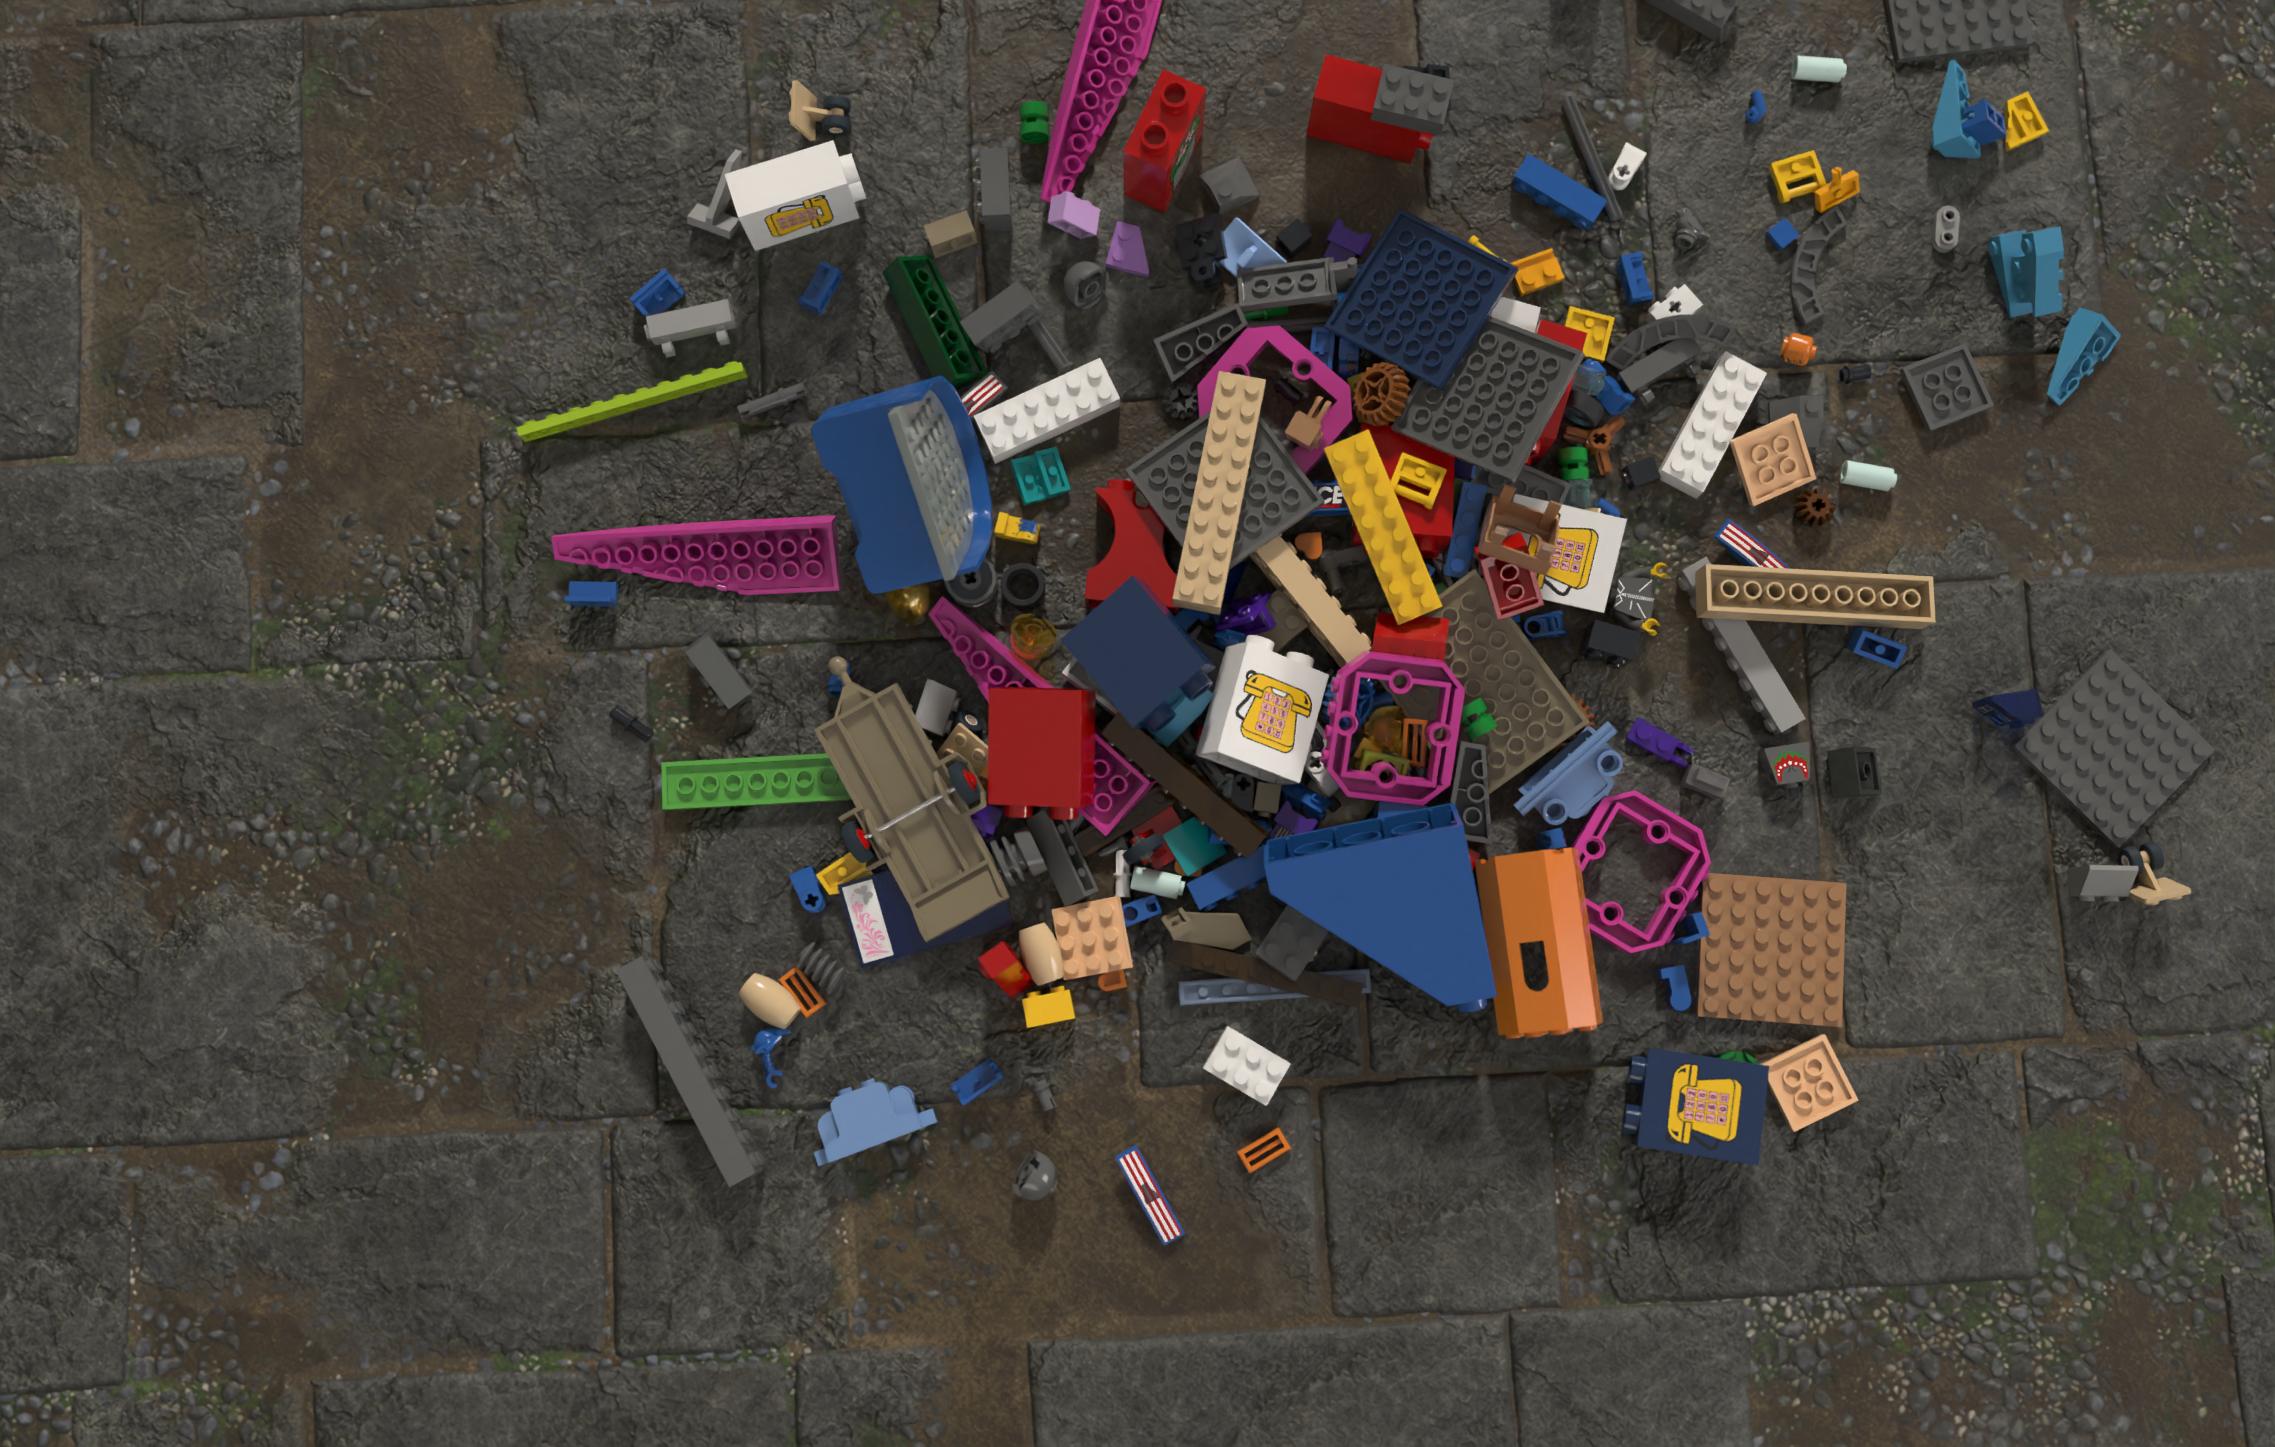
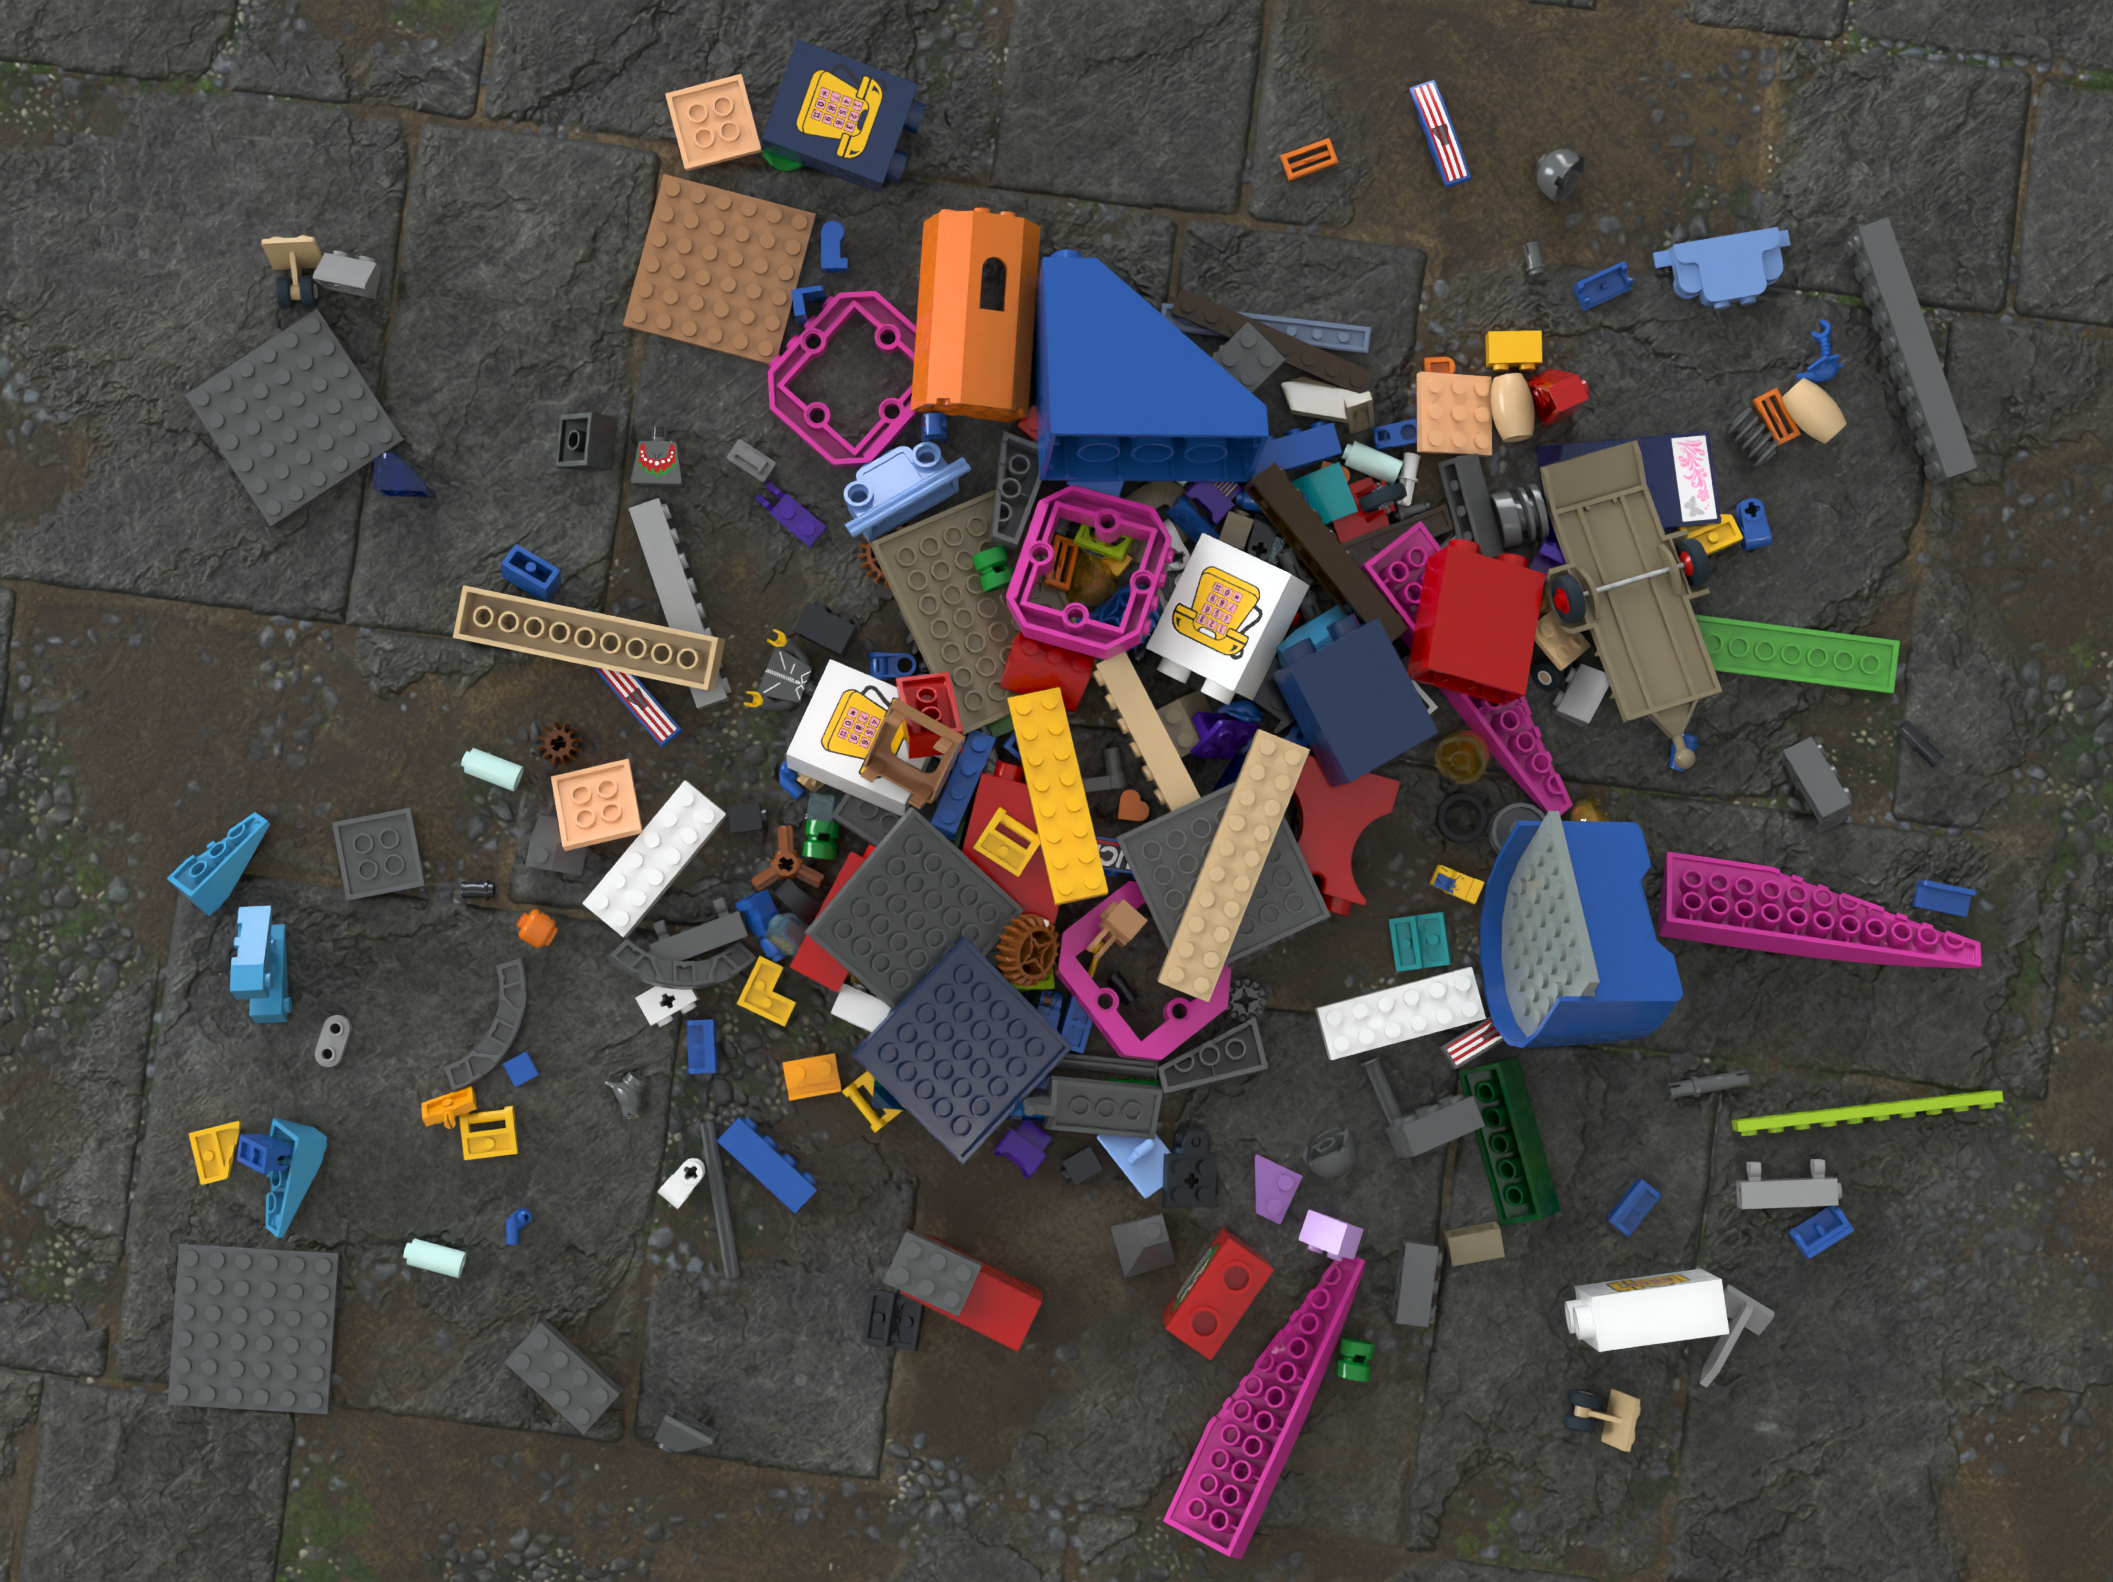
camera: 170 degrees left, 5 degrees up
(1246, 1065) = (1312, 249): white brick -> none

